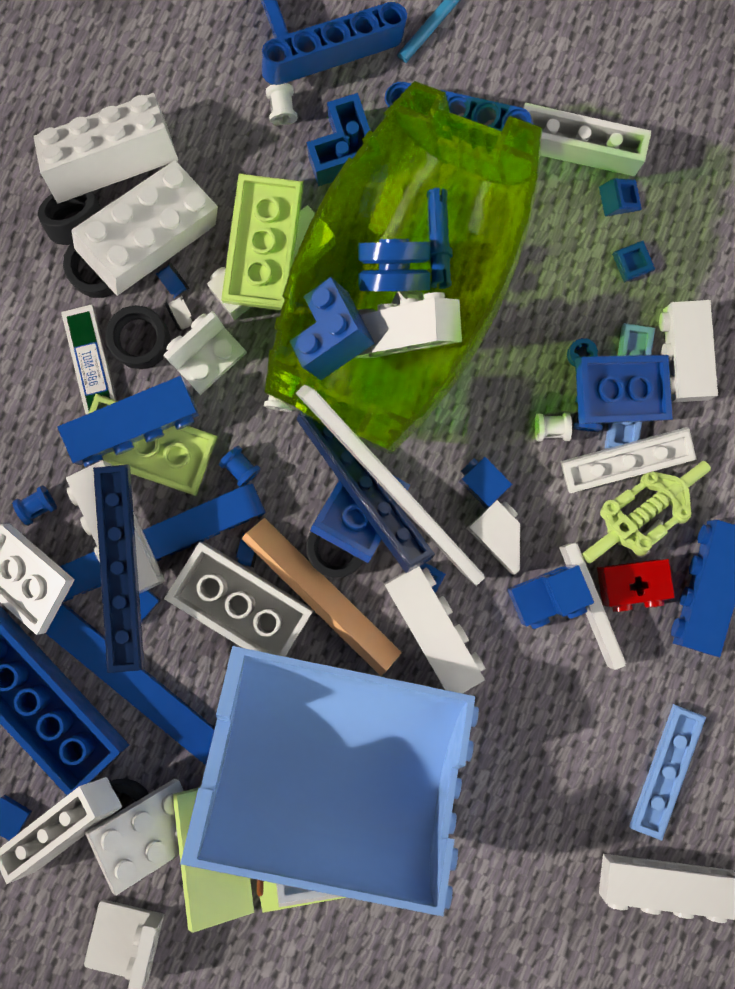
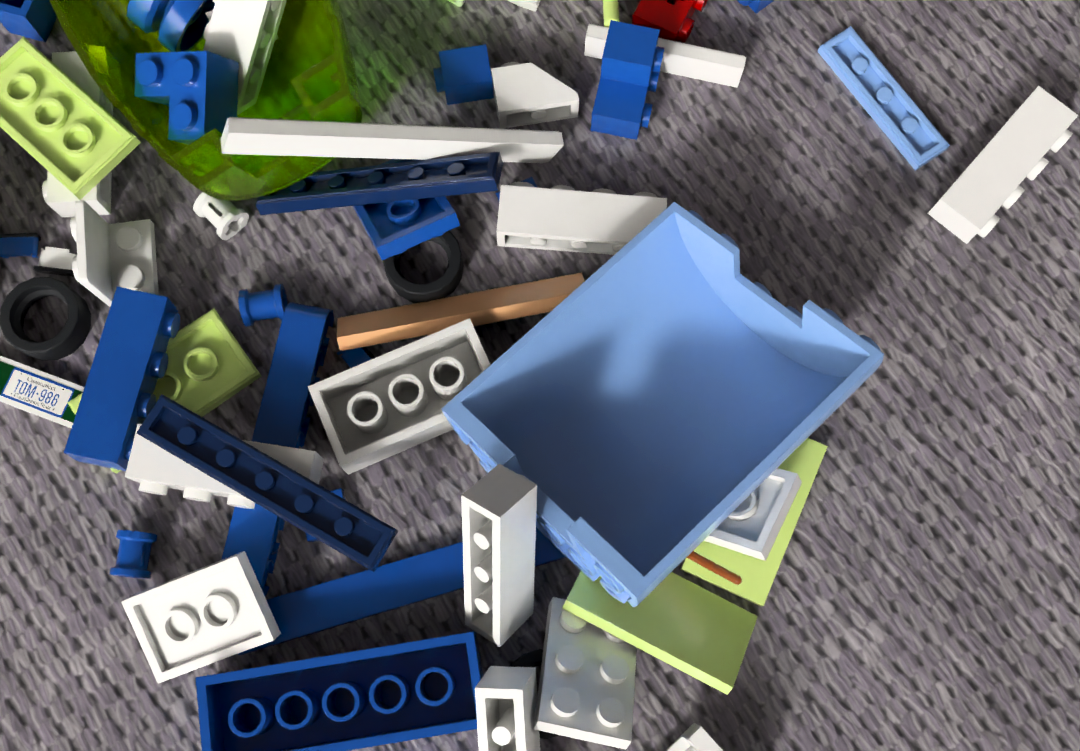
camera: 55 degrees left, 10 degrees down
(172, 741) = (499, 553): none -> white brick

